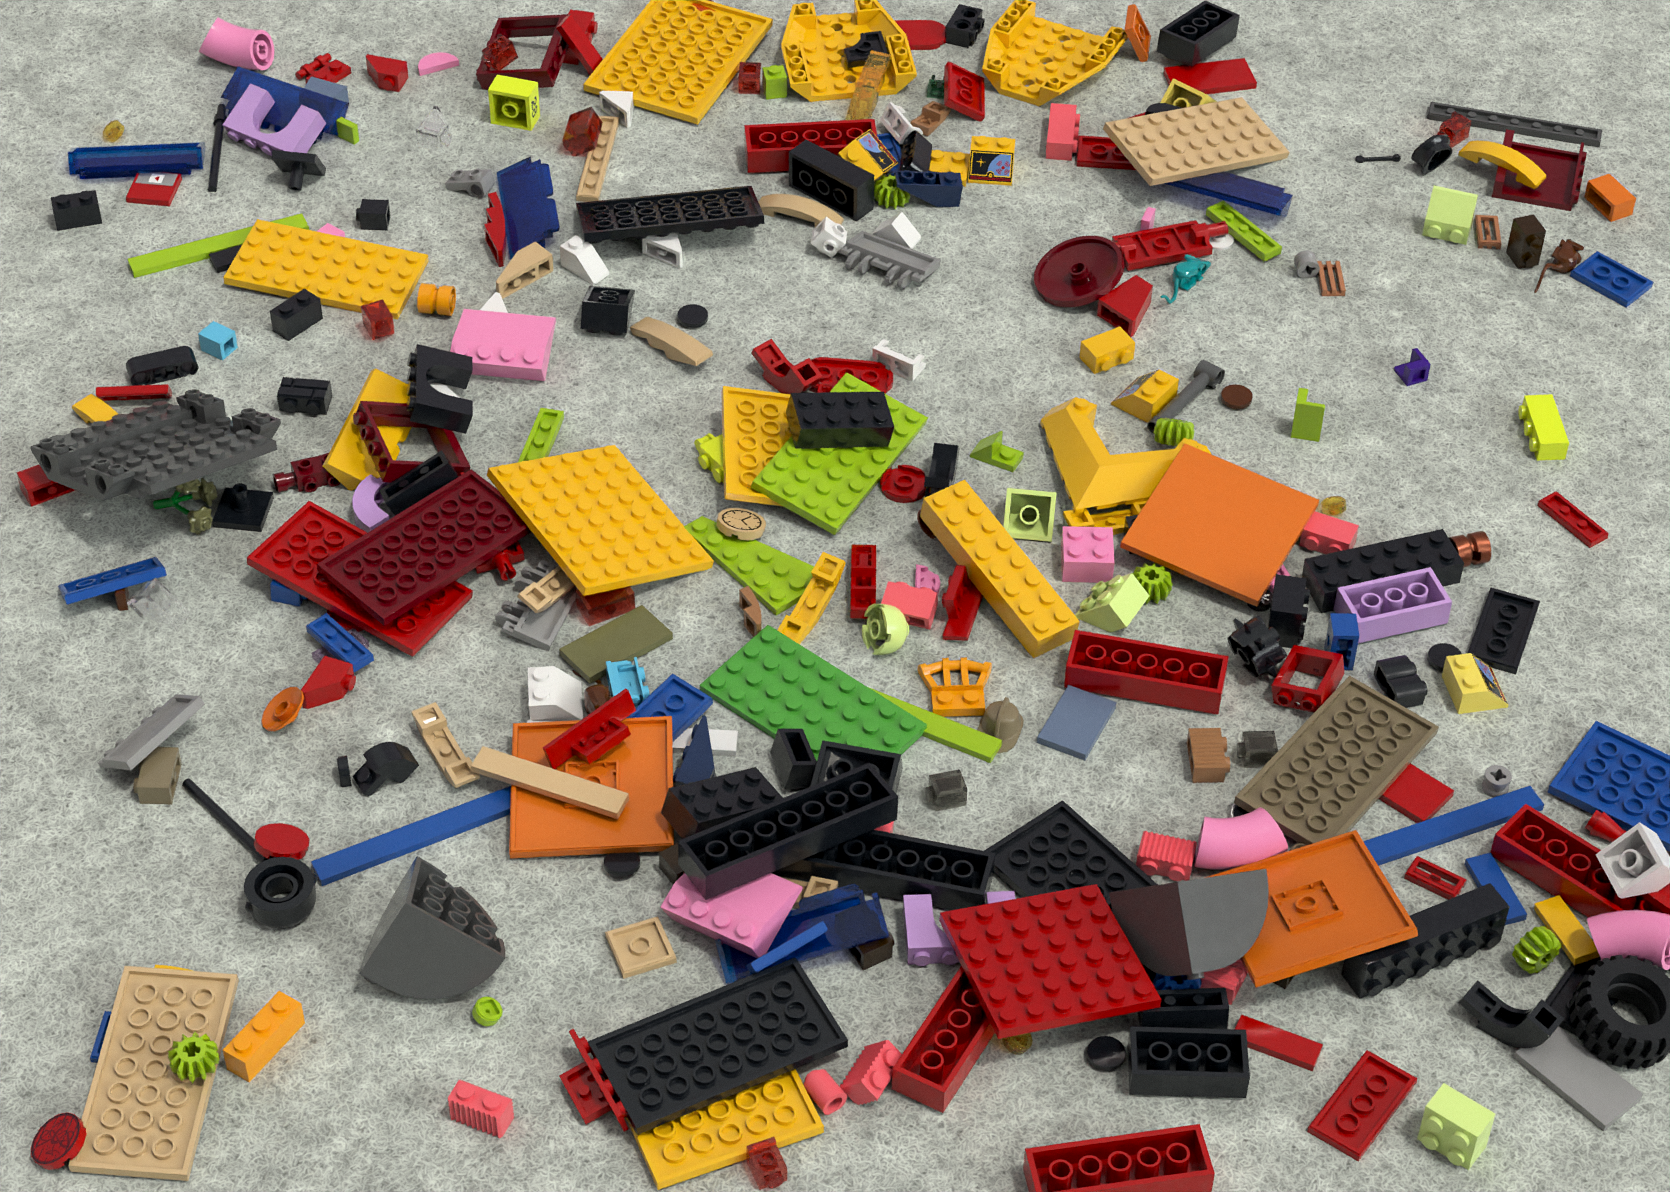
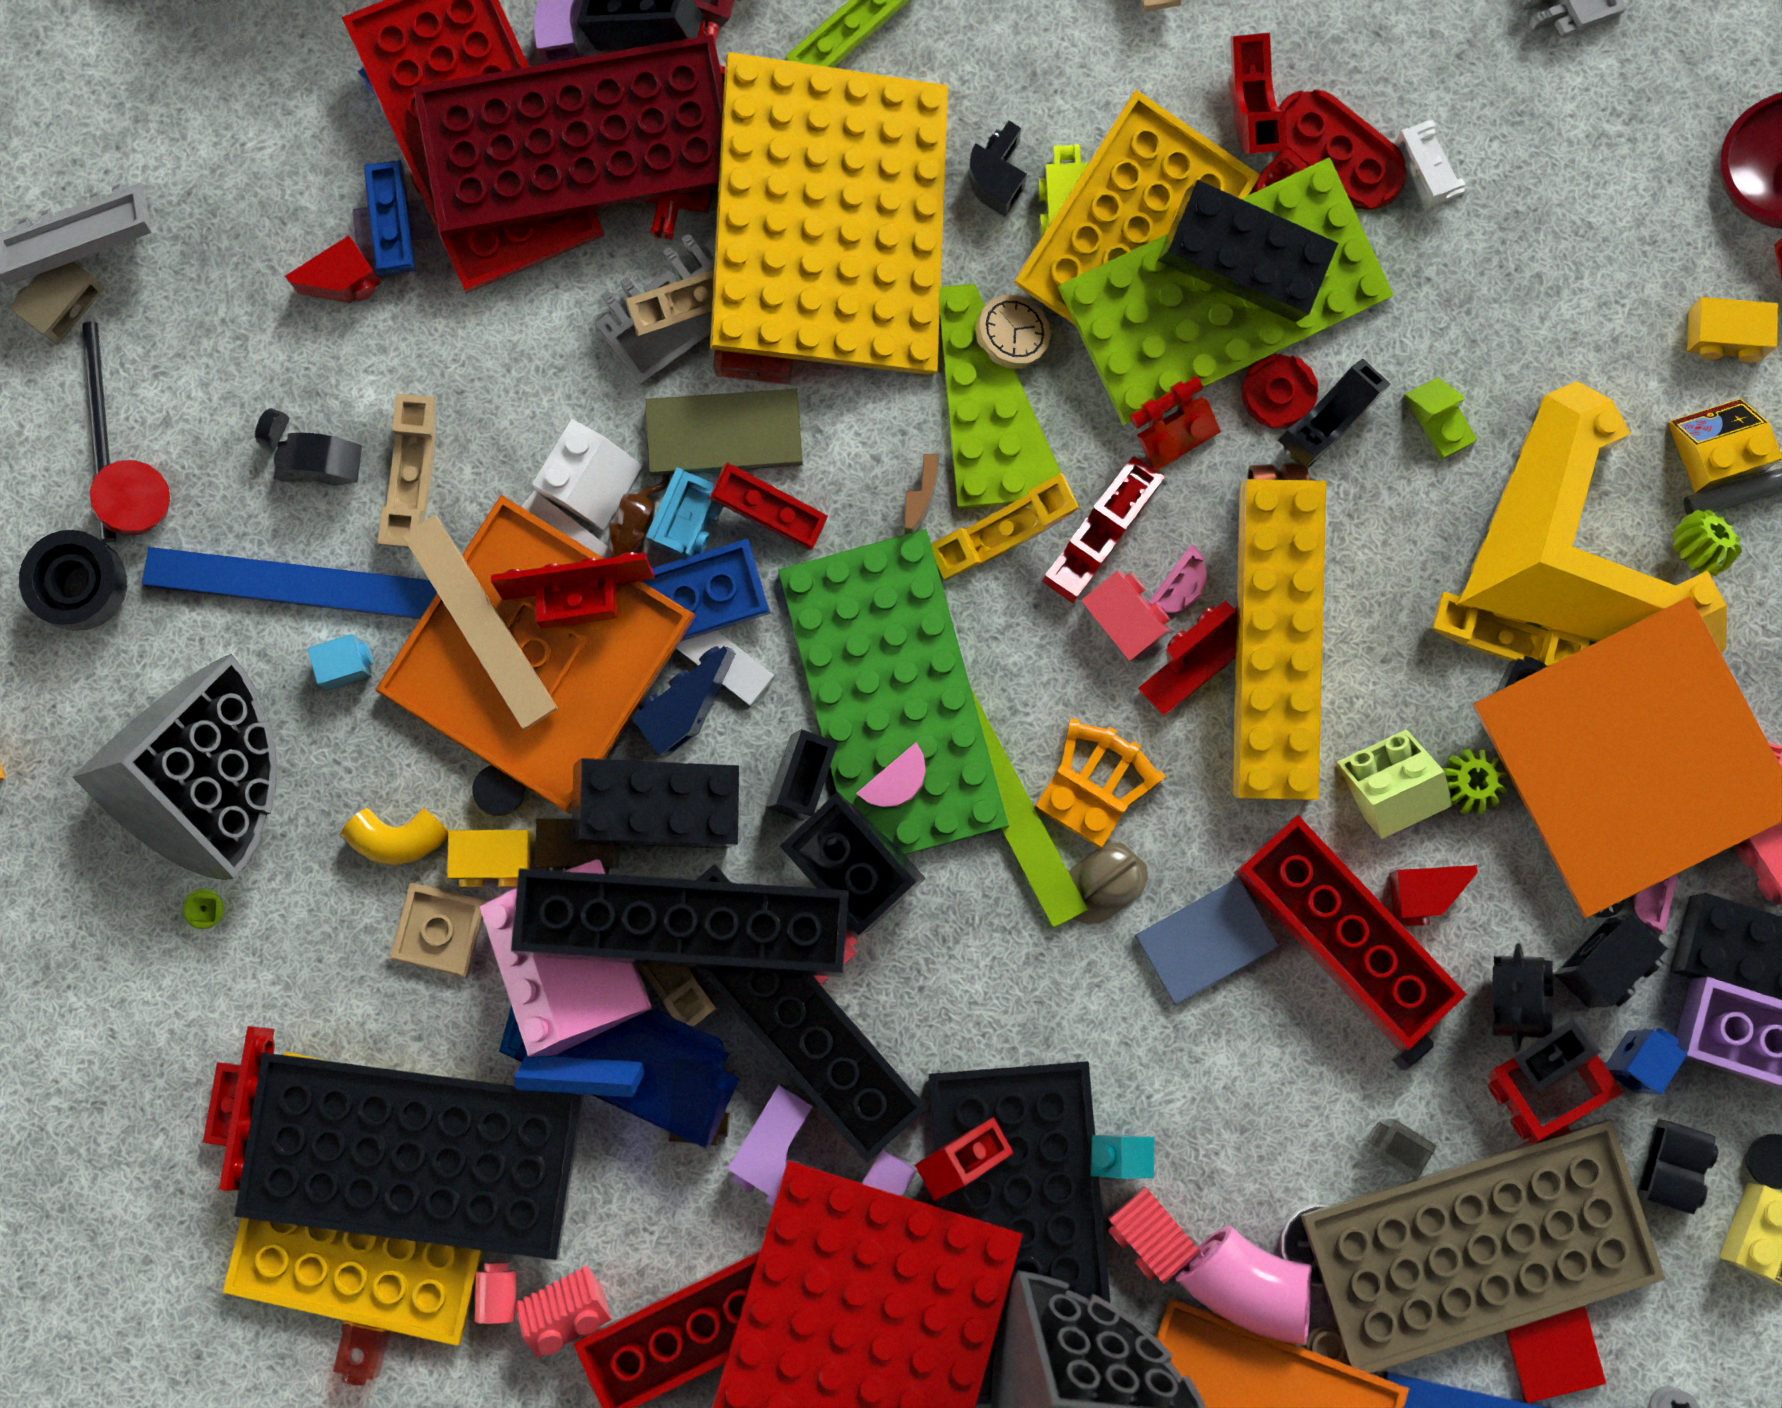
camera: 40 degrees right, 35 degrees up
(282, 709) = (257, 285): orange dish -> none
(476, 851) = (340, 661): none -> medium azure brick
(480, 1108) = (100, 1050): coral brick -> none
(580, 916) = (394, 844): none -> yellow cylinder
(642, 891) = (488, 856): none -> yellow brick
(671, 467) = (991, 176): none -> black brick
(671, 657) = (768, 506): none -> red tile
(851, 728) = (898, 781): none -> bright pink tile
(868, 520) = (1178, 432): none -> red plate
(886, 624) = (1067, 637): yellowish green cylinder -> none
(946, 790) = (957, 946): clear smoke brick -> none
(1030, 514) = (1402, 557): yellowish green slope -> none
(1033, 871) = (963, 1159): none -> red slope
(1087, 554) = (1425, 679): bright pink brick -> none
(1118, 827) = (1122, 1156): none -> teal brick
(1170, 631) = (1427, 891): none -> red slope
(1207, 755) = (1329, 1112): medium nougat brick -> none
(1226, 705) = (1406, 1058): none -> black tile
(1296, 649) = (1558, 1055): none -> black slope

